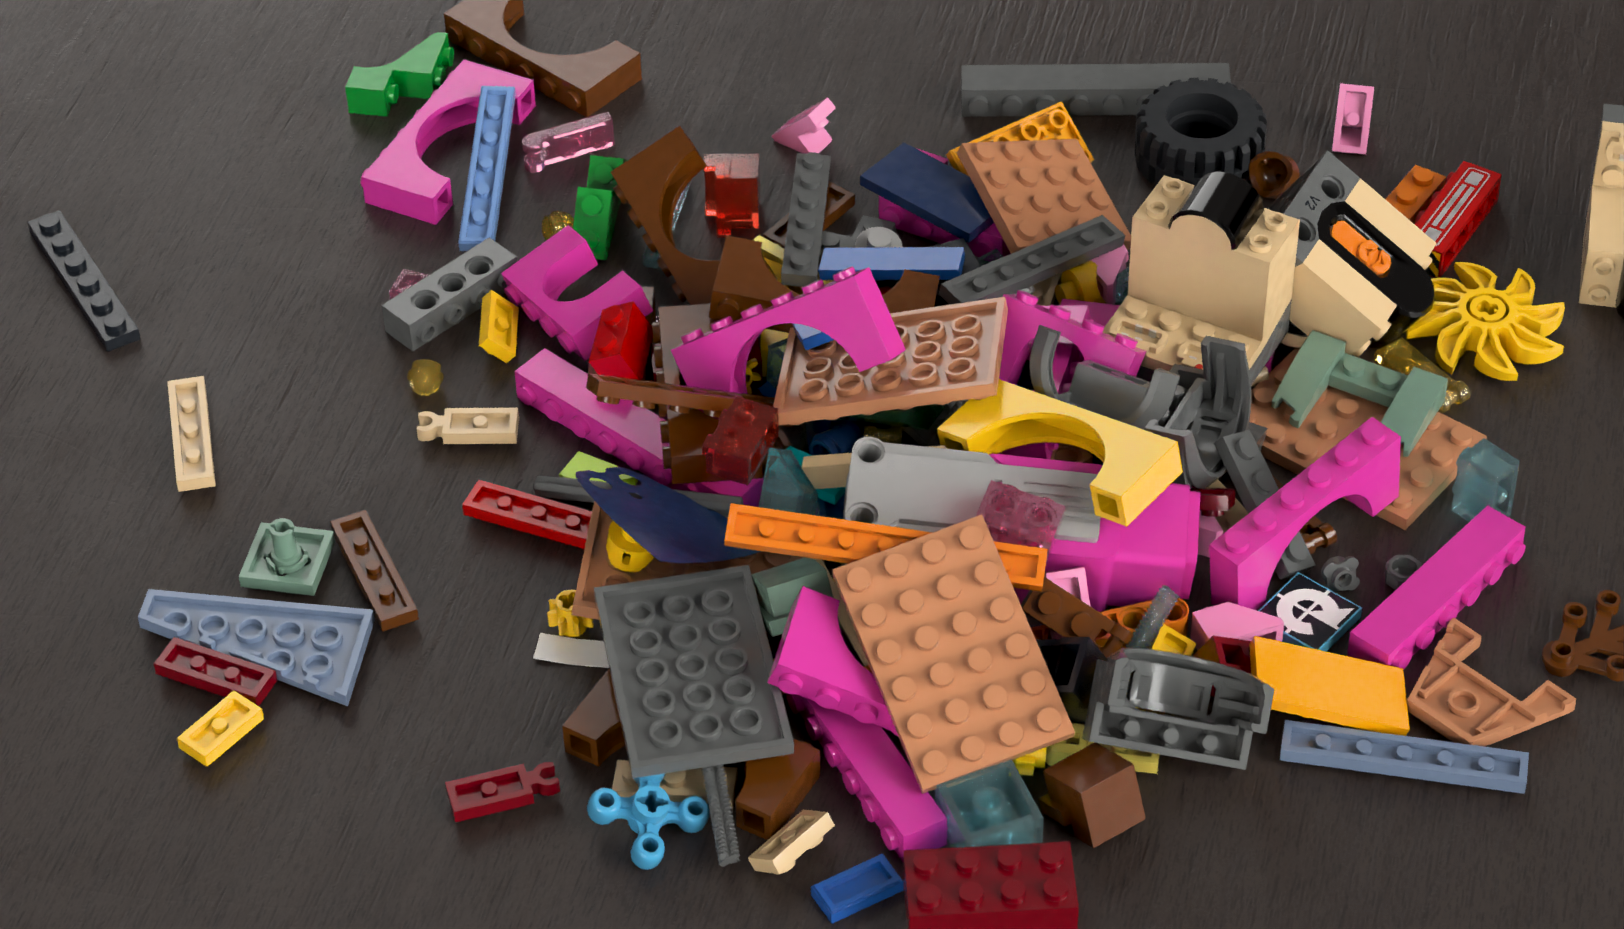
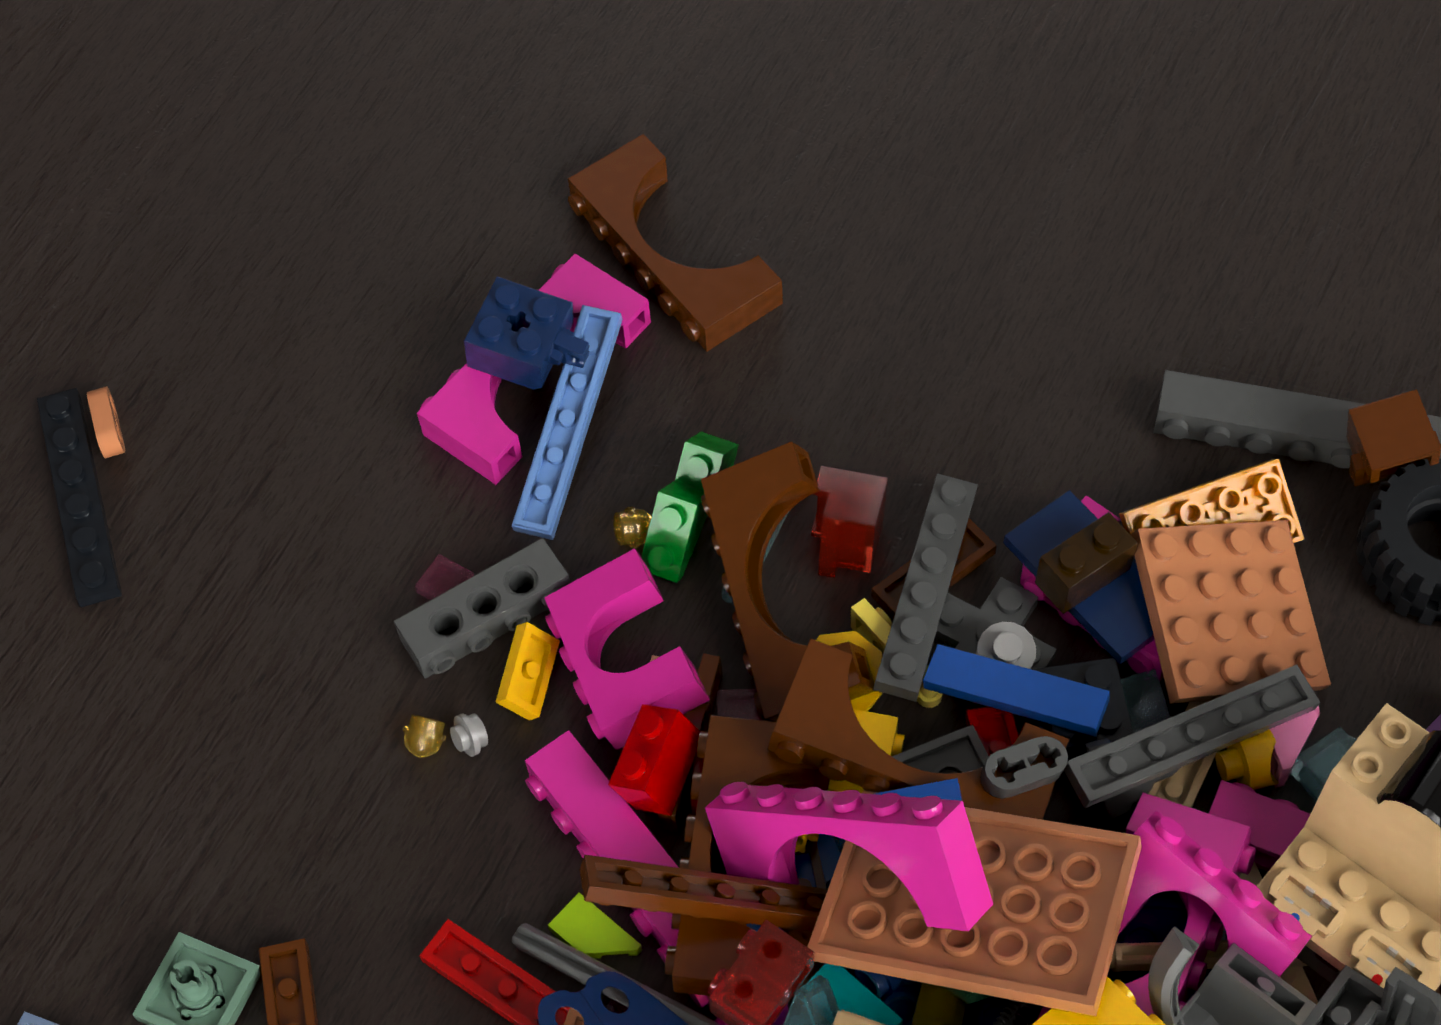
camera: 15 degrees right, 15 degrees up
(93, 227) = (105, 422): none -> nougat beam
(191, 434) = (136, 766): tan plate -> none
(412, 75) = (521, 257): green arch -> none
(439, 108) = (523, 335): none -> dark blue hinge
(462, 371) = (469, 734): none -> light grey plate
(470, 426) = (463, 823): tan plate -> none
(567, 141) = (671, 394): clear pink plate -> none
(806, 130) = (958, 427): bright pink slope -> none
(910, 289) = (1020, 758): none -> dark grey beam
(927, 174) = (1085, 562): none -> dark brown brick
(1140, 68) = (1389, 436): none -> reddish brown plate

